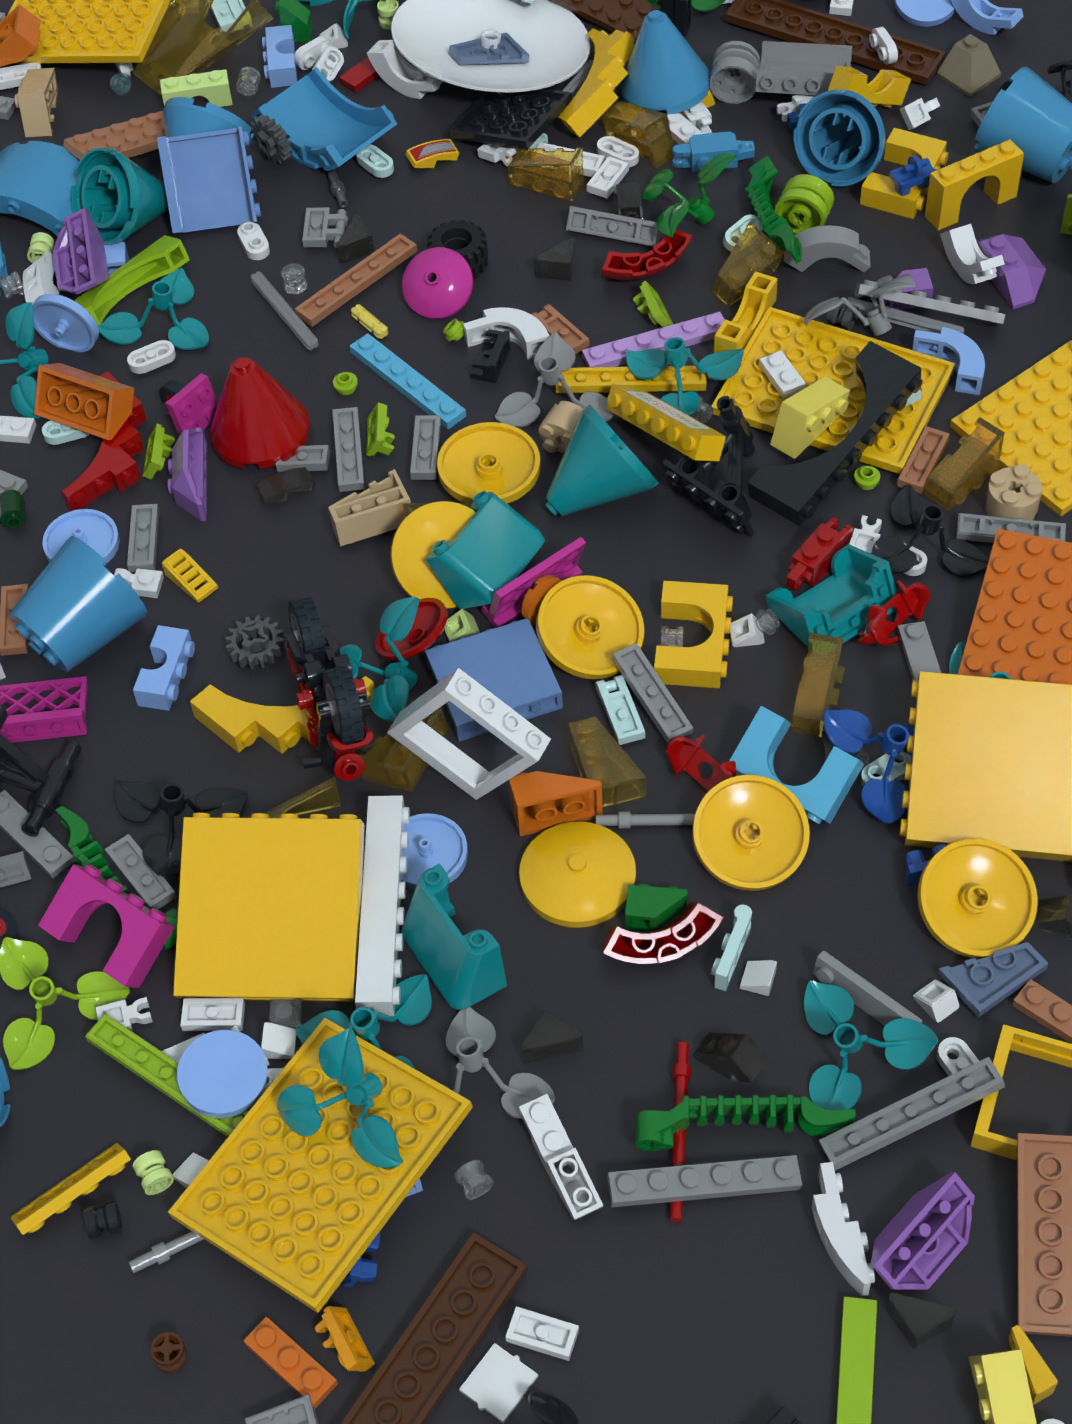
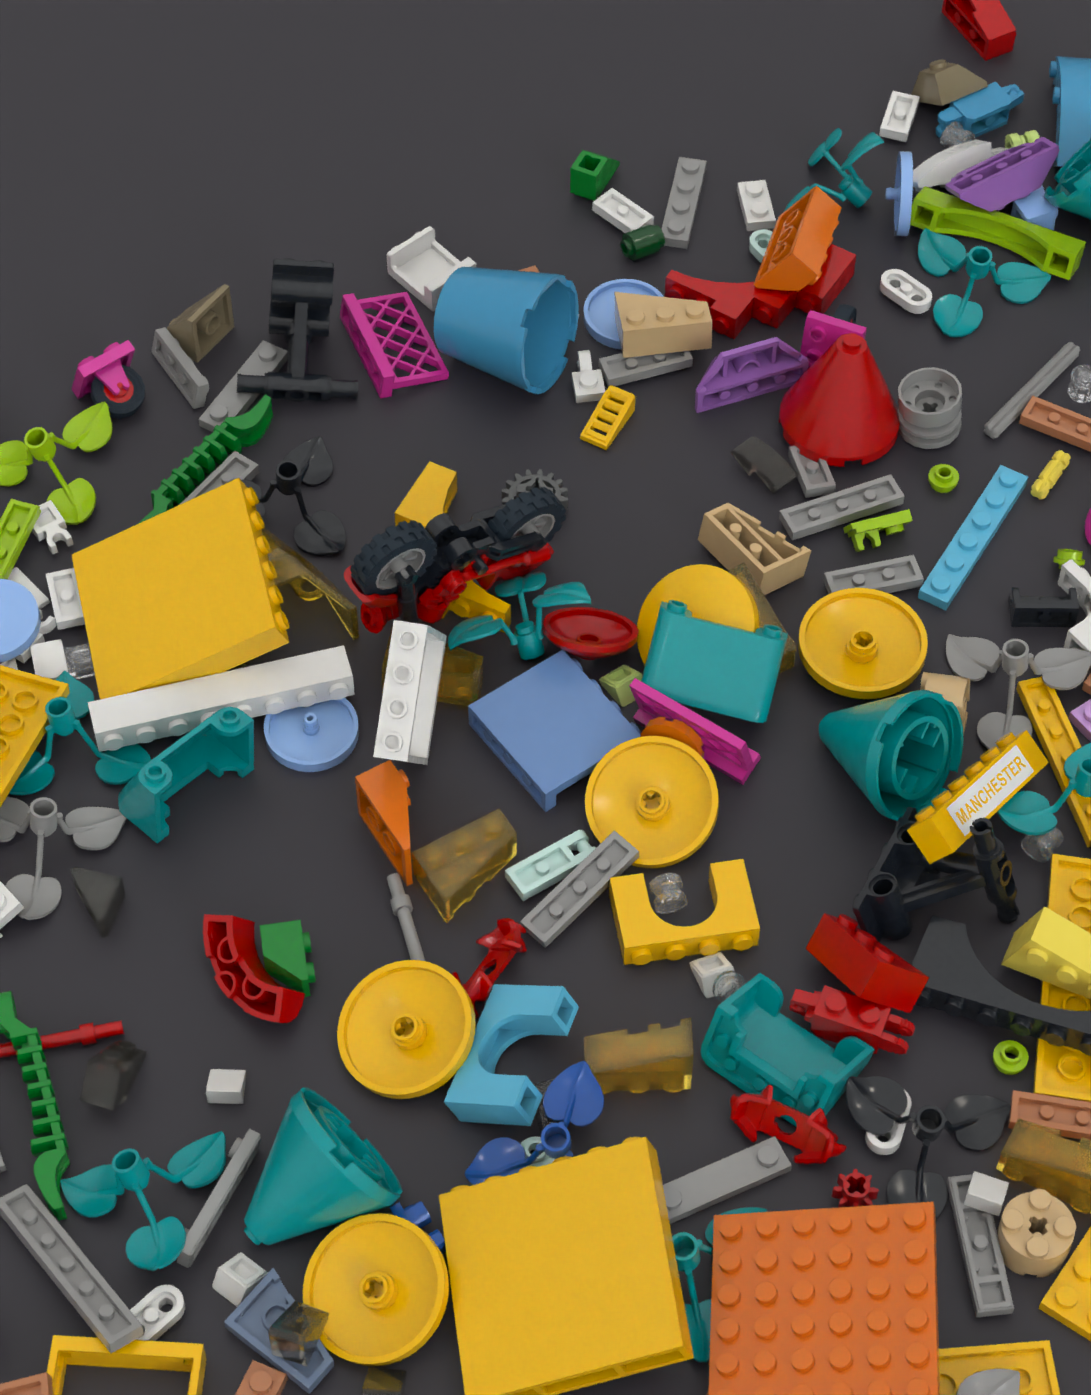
camera: 70 degrees right, 0 degrees up
(118, 511) = (661, 324): none -> tan wedge
(142, 929) = (164, 450): dark pink arch -> none
(156, 450) = (781, 330): lime plate -> none
(161, 686) = (497, 436): light blue arch -> none
(286, 361) = (929, 408): none -> light grey wheel
(577, 874) = (320, 874): yellow dish -> none
(732, 947) = (254, 1048): light aqua plate -> none
(778, 529) = (865, 963): none -> red wedge
(867, 535) = (904, 1072): white plate -> none
(878, 915) = (317, 1174): none -> teal cone
(956, 589) = (854, 1190): none -> red gear
(979, 511) = (986, 1193): none -> white slope
(1006, 954) = (297, 1332): none -> clear smoke slope

